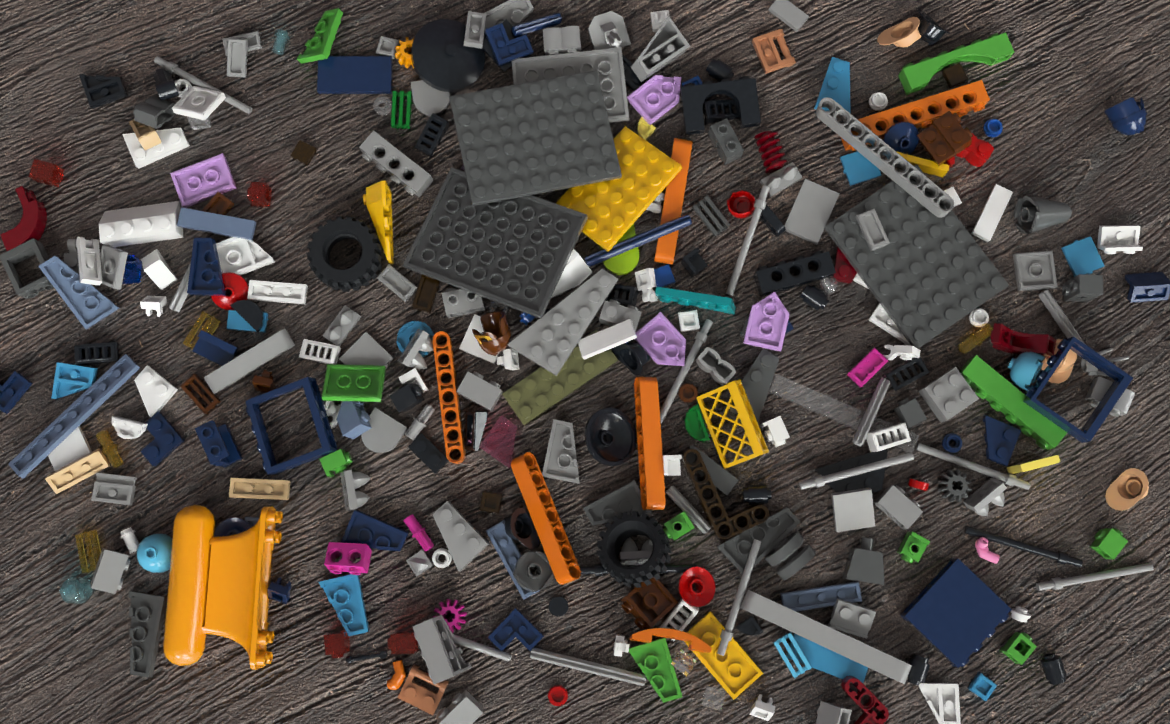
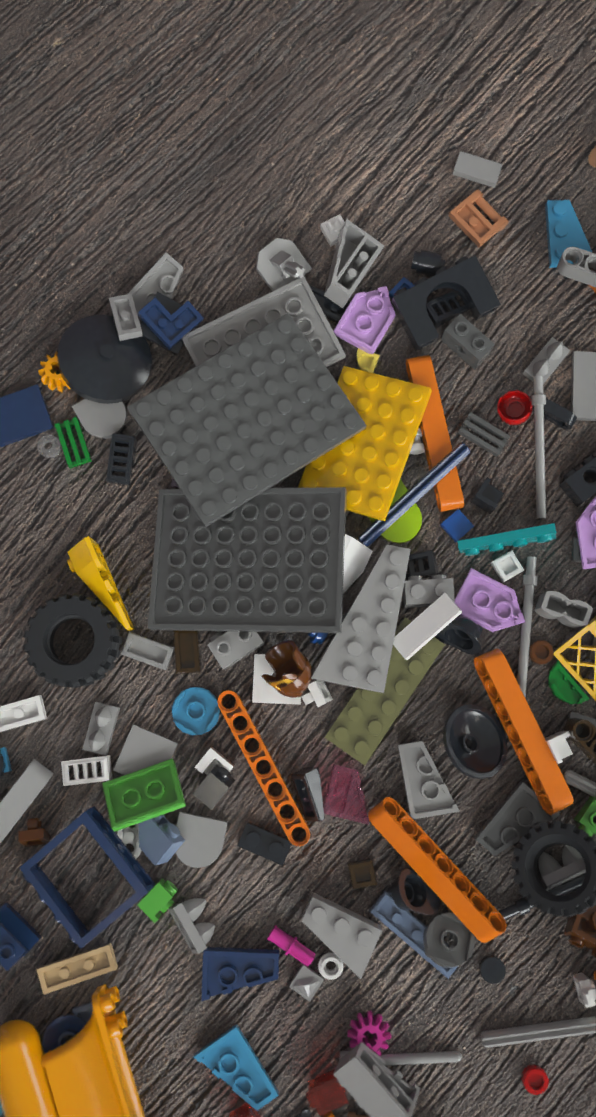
camera: 20 degrees left, 0 degrees up
(279, 592) = (150, 1089): dark blue tile -> none
(349, 553) = (218, 1007): dark pink brick -> none
(376, 144) = (59, 494): light grey brick -> none
(387, 46) = (28, 375): light grey tile -> none
(411, 356) = (199, 734): light grey tile -> none
(419, 422) = (240, 809): light grey axle -> none
(480, 391) = (298, 745): light grey brick -> none
(516, 626) = (452, 1016): dark blue plate -> none
(536, 24) = (194, 285): dark blue axle -> none
(561, 40) = (231, 293): light grey brick -> none
(645, 282) = (440, 540): white plate -> none
(769, 151) = (523, 333): dark red piece -> none

